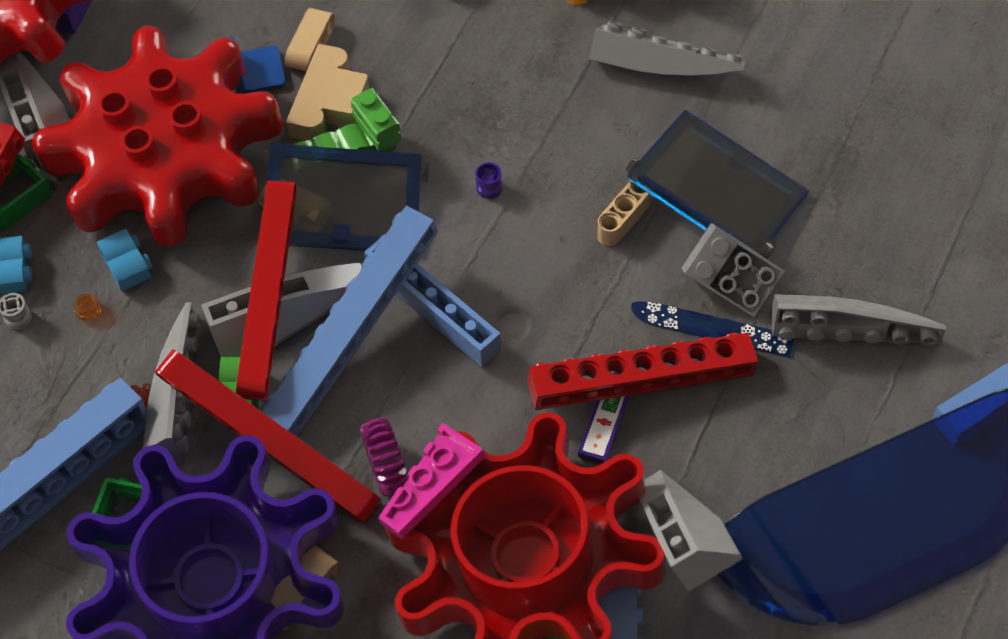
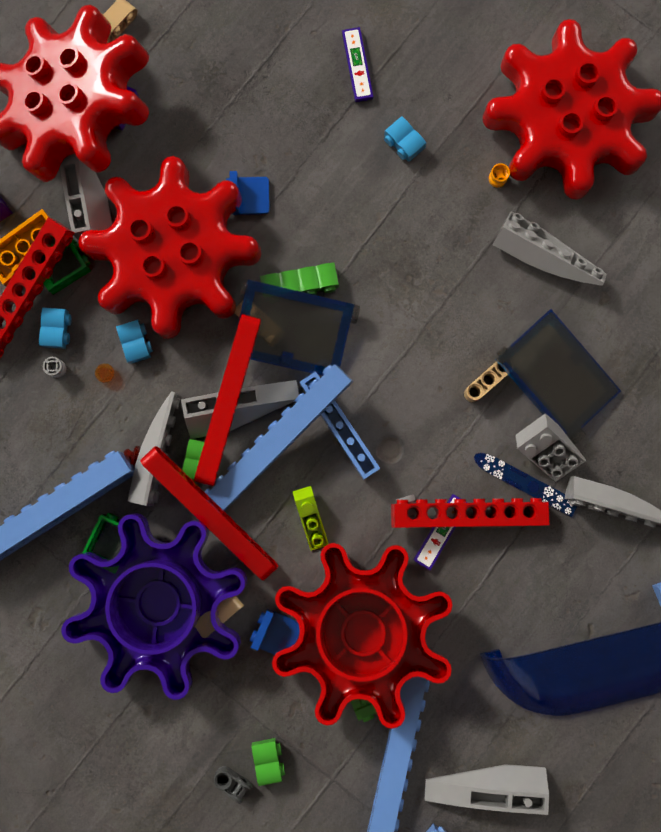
camera: 10 degrees right, 25 degrees up
(313, 30) = (293, 179): tan beam -> none
(325, 94) = (297, 232): tan brick -> none
(375, 119) = (327, 273): bright green brick -> none
(382, 587) = (275, 632): none -> blue bracket
(384, 455) = (285, 541): magenta gear -> none
(411, 419) = (310, 518): none -> lime slope
(439, 471) = (314, 578): dark pink wing -> none
(488, 180) = (398, 329): dark purple wheel -> none
(687, 531) = (469, 654): light grey wedge -> none

